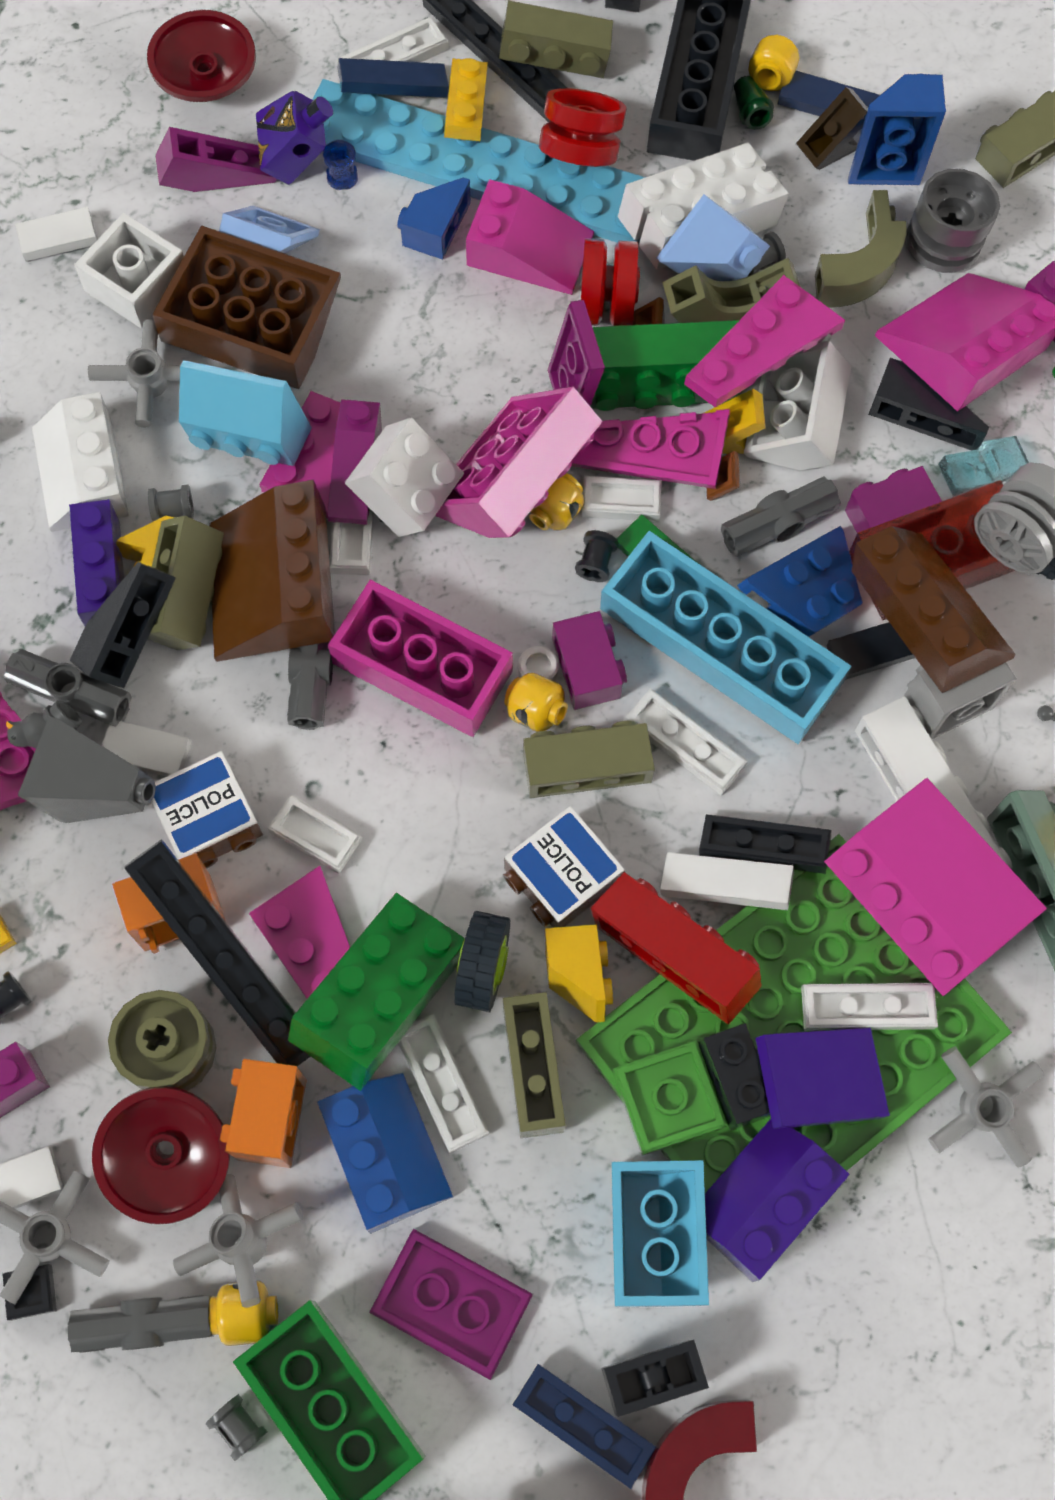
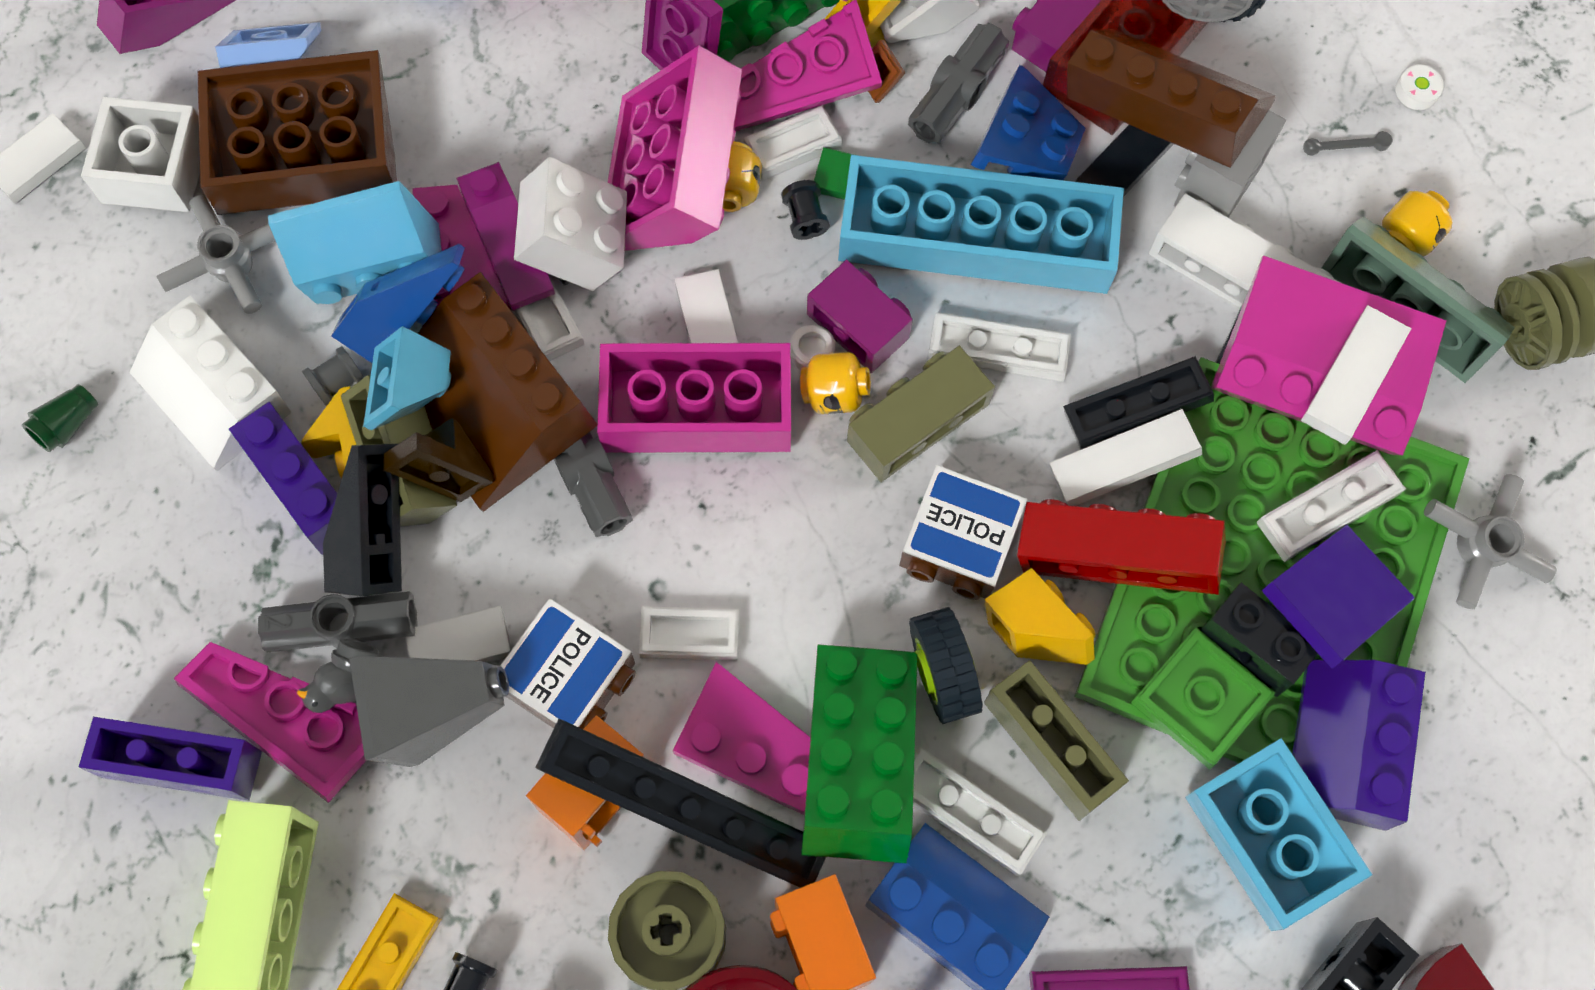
camera: 30 degrees left, 0 degrees up
(201, 608) = (440, 462): none -> dark brown slope
(210, 531) = (405, 377): none -> medium azure slope
(239, 470) = (397, 301): none -> blue slope
(474, 596) = (705, 308): none -> white tile
(937, 910) = (1356, 375): none -> white tile

